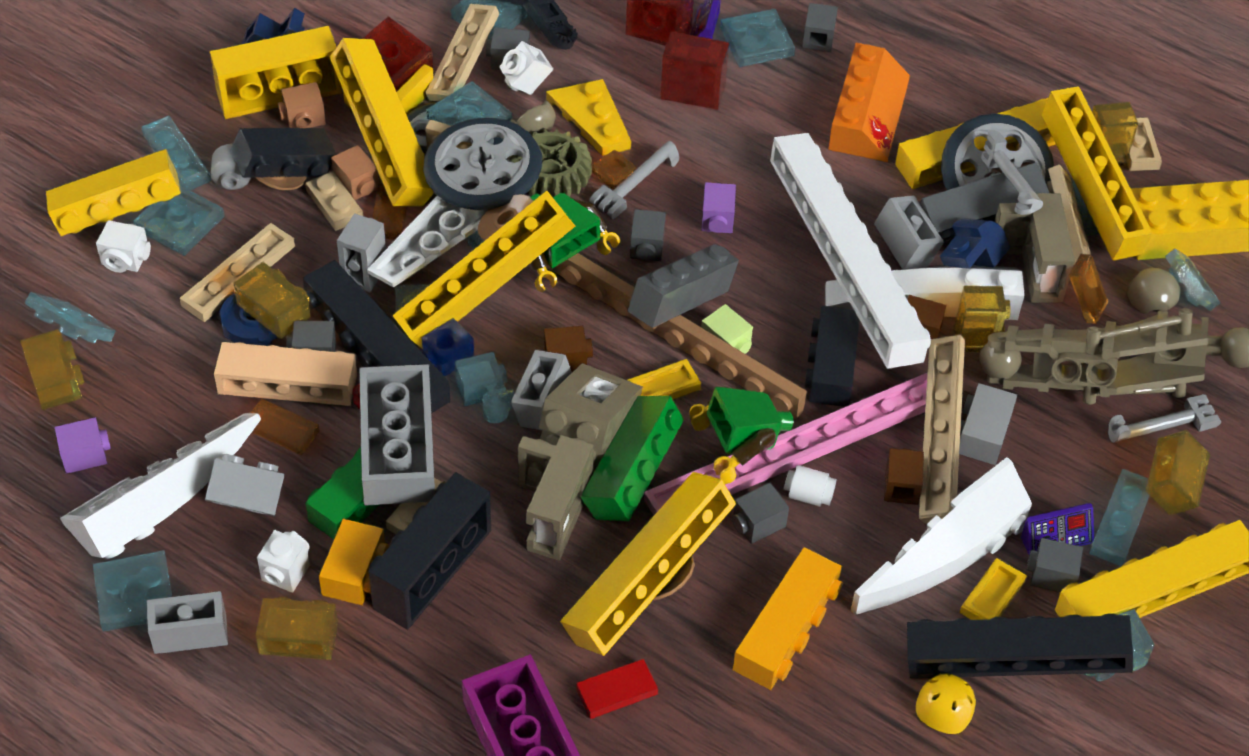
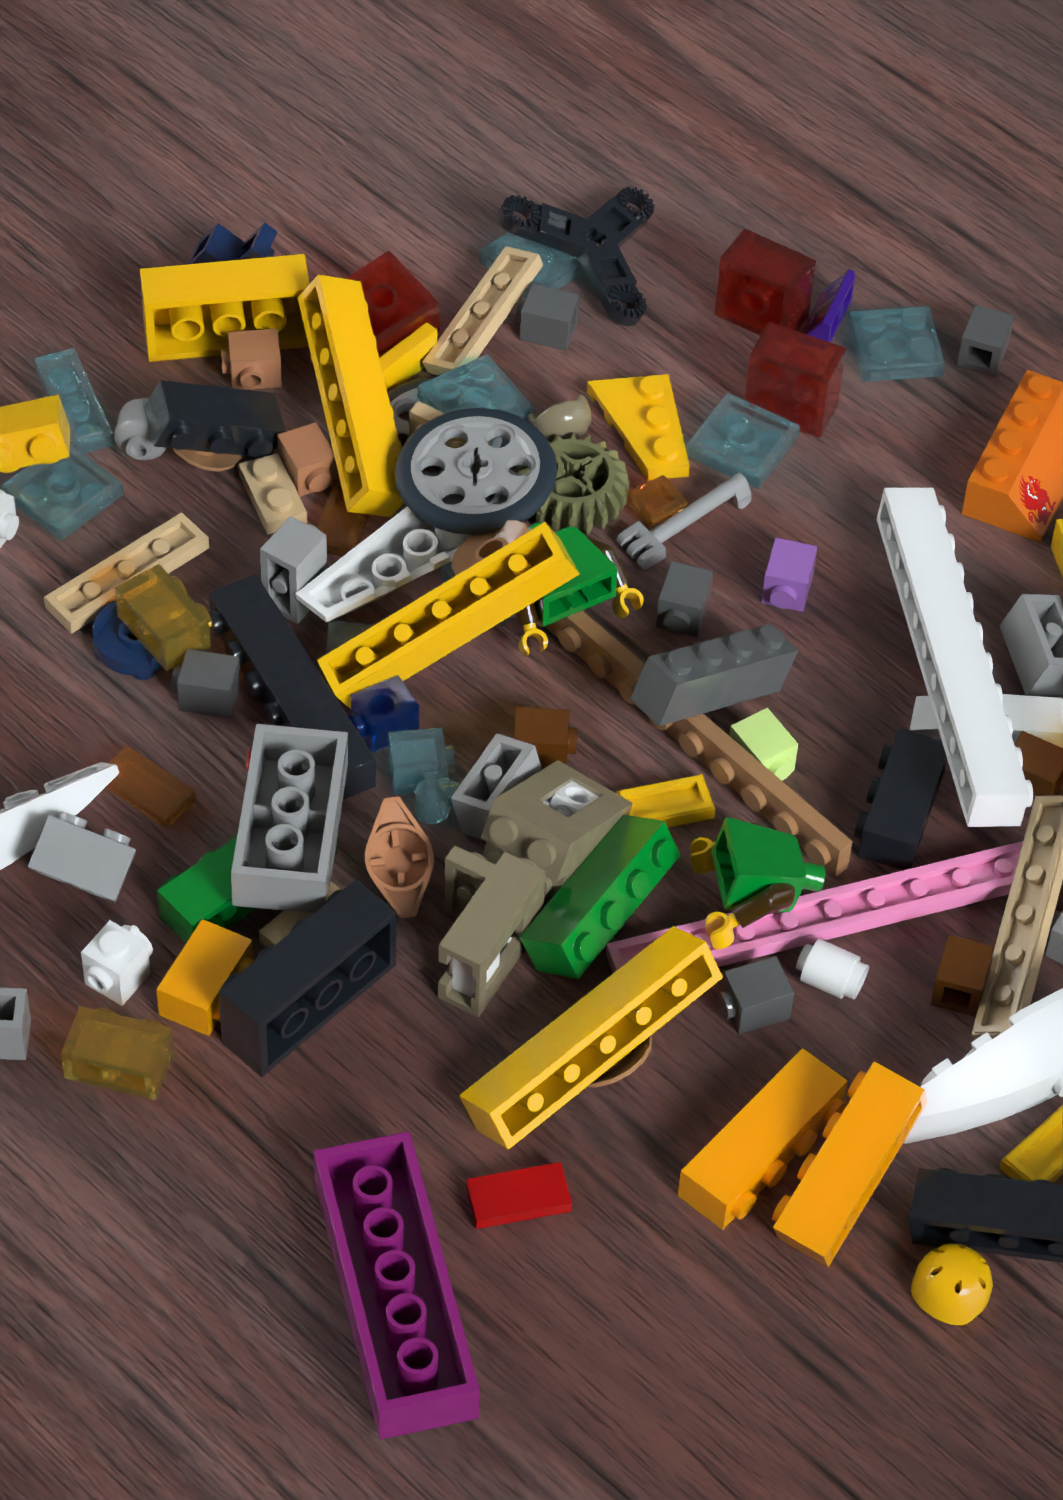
camera: 10 degrees right, 0 degrees up
(285, 373) = (164, 717): light nougat brick -> none
(481, 450) = (399, 857): none -> nougat hat
(525, 68) = (563, 345): white brick -> none
(665, 118) = (743, 440): none -> clear light blue plate
(857, 626) = (849, 1164): none -> light orange brick

